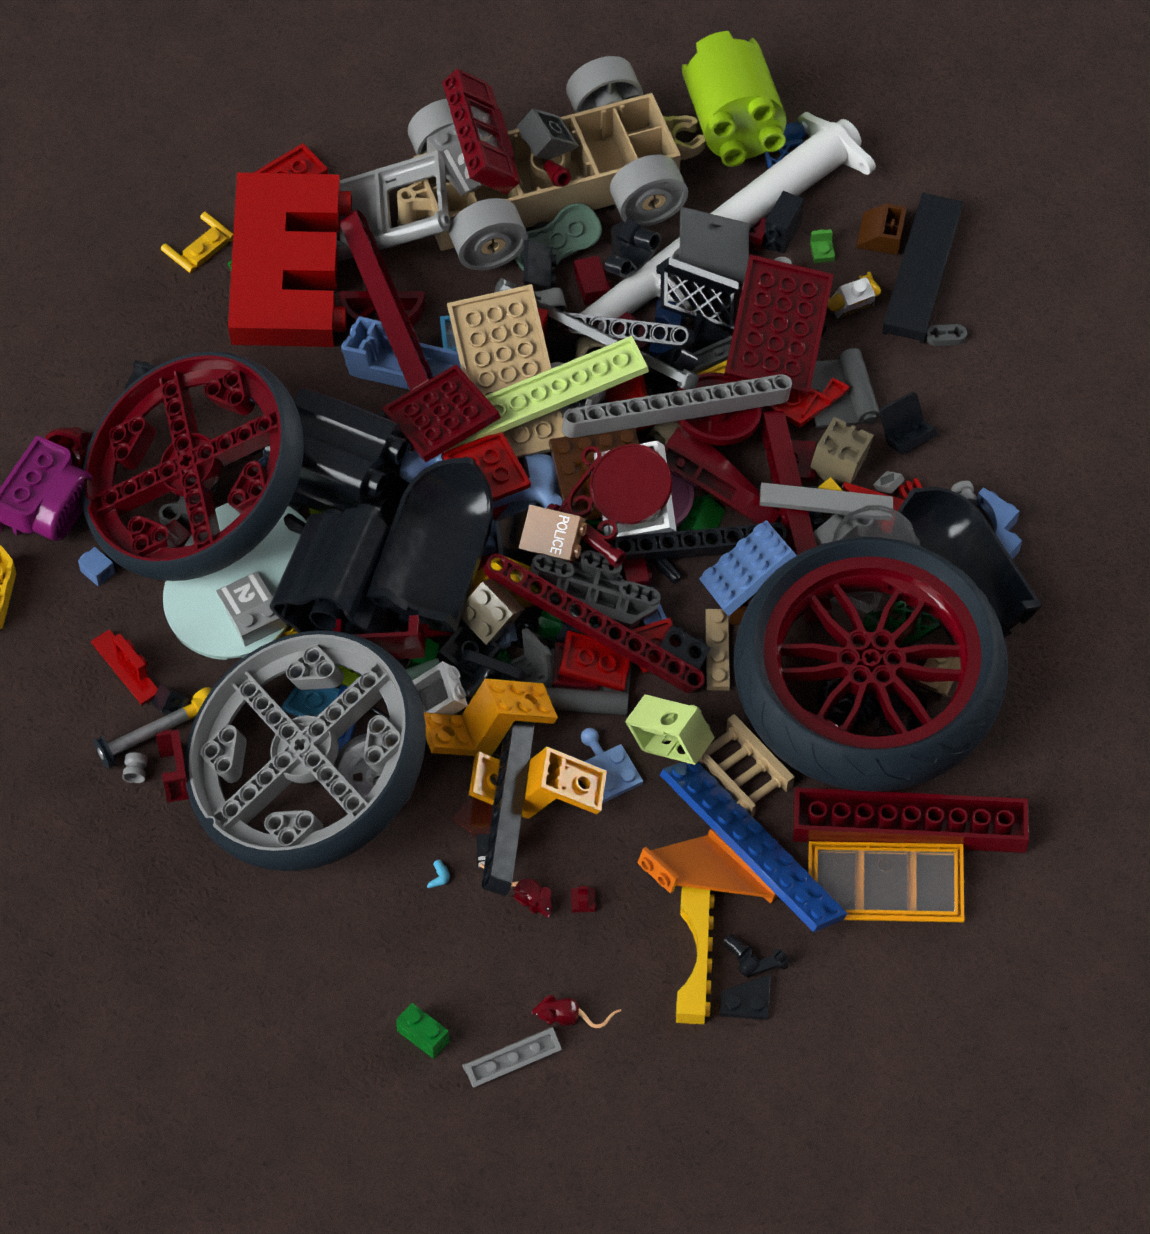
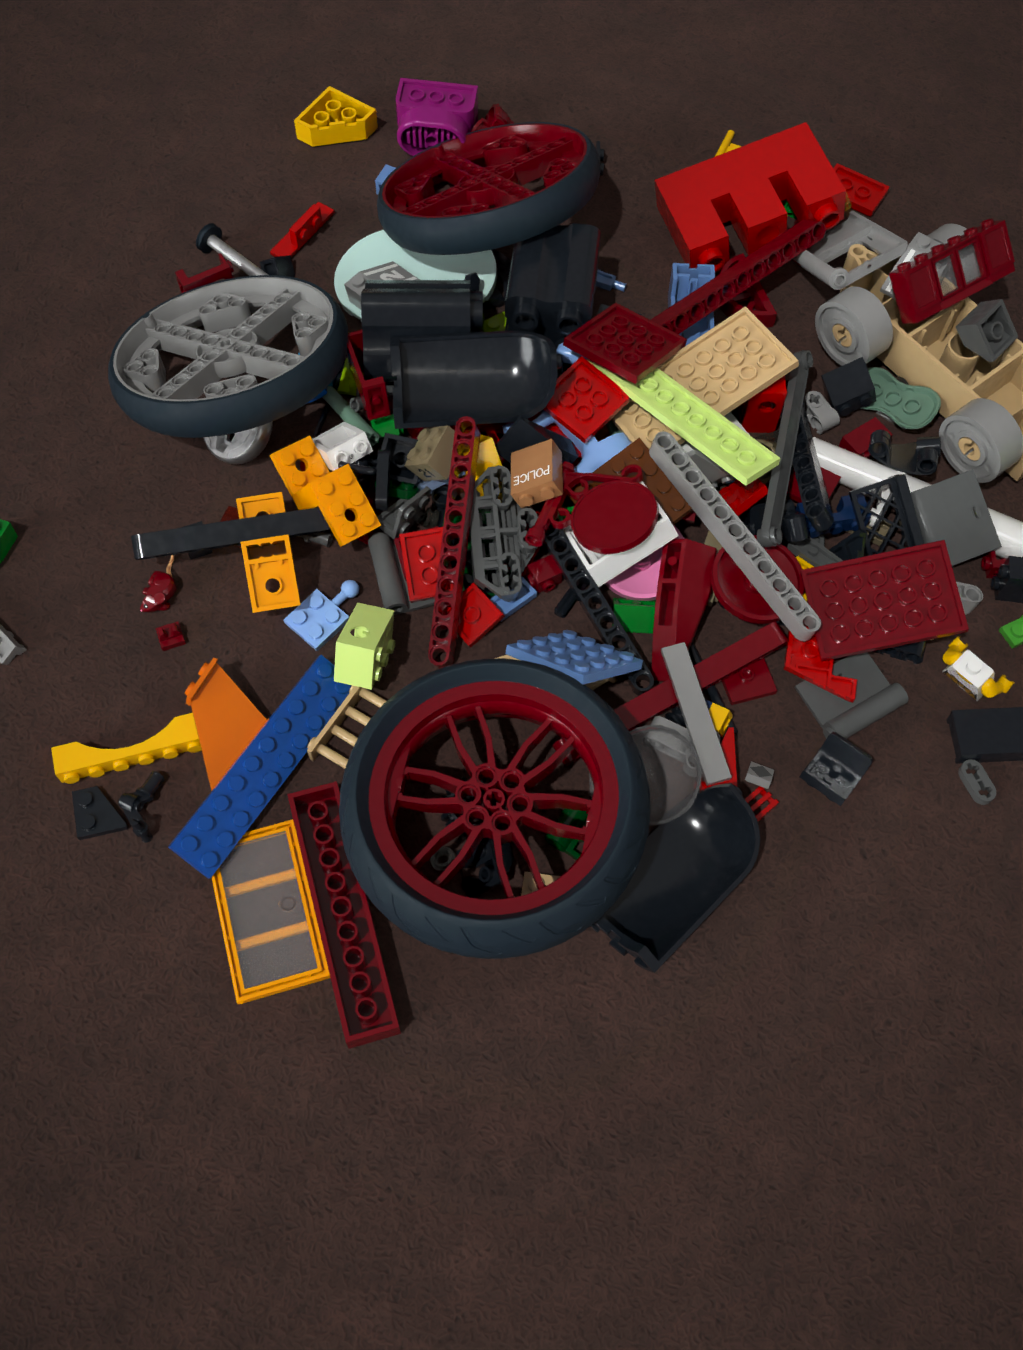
camera: 70 degrees right, 5 degrees up
(135, 767) = (203, 263): light grey wheel -> none
(443, 872) = (168, 515): medium azure animal -> none
(558, 174) = (947, 353): dark red cone -> none
(564, 1011) = (41, 656): dark red animal -> none
(685, 643) = (463, 636): black brick -> none
(841, 452) = (766, 712): dark tan piece -> none
(965, 489) = (775, 857): light grey wheel -> none
(1003, 517) = (768, 906): medium blue arch -> none

